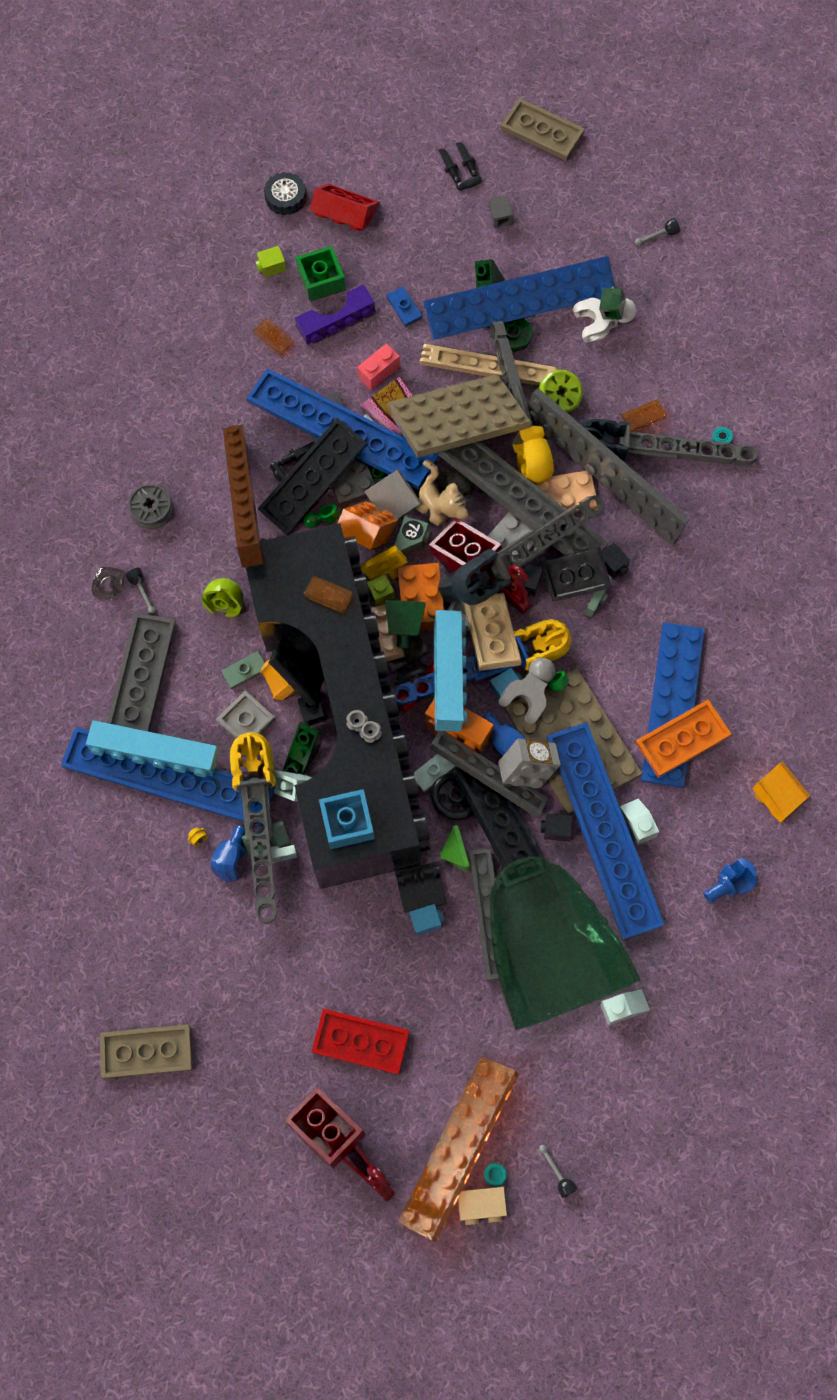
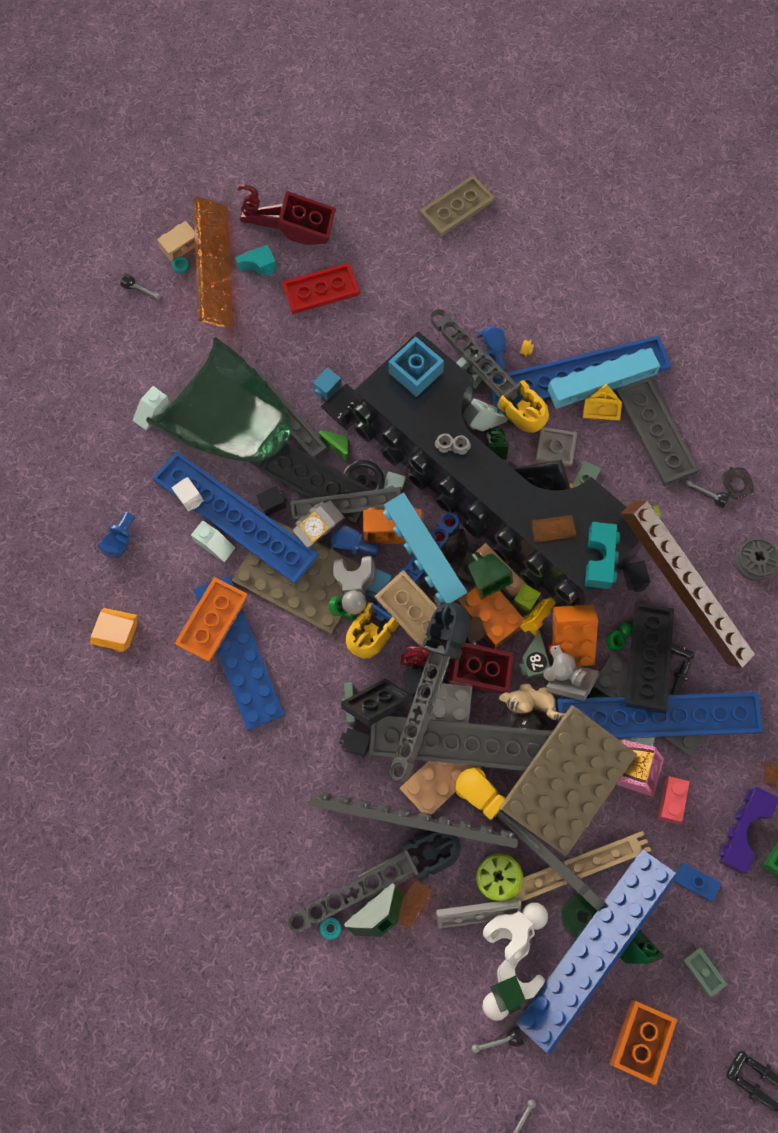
camera: 145 degrees right, 0 degrees up
(173, 725) = (602, 405): none -> yellow slope
(315, 528) = (603, 538): none -> teal arch
(395, 503) = (563, 667): none -> light grey animal
(404, 1118) = (258, 260): none -> teal arch
(446, 247) = (704, 972): none -> sand green plate
(500, 211) = (684, 1047): dark grey brick -> none
(529, 228) = (643, 1042): none -> orange brick
(570, 348) = (518, 929): none -> white piece
(600, 380) = (476, 913): none -> light grey tile
(625, 285) = (513, 1037): none -> hinge
(639, 873) = (187, 494): none -> white brick
(678, 418) = (378, 914): none -> slope

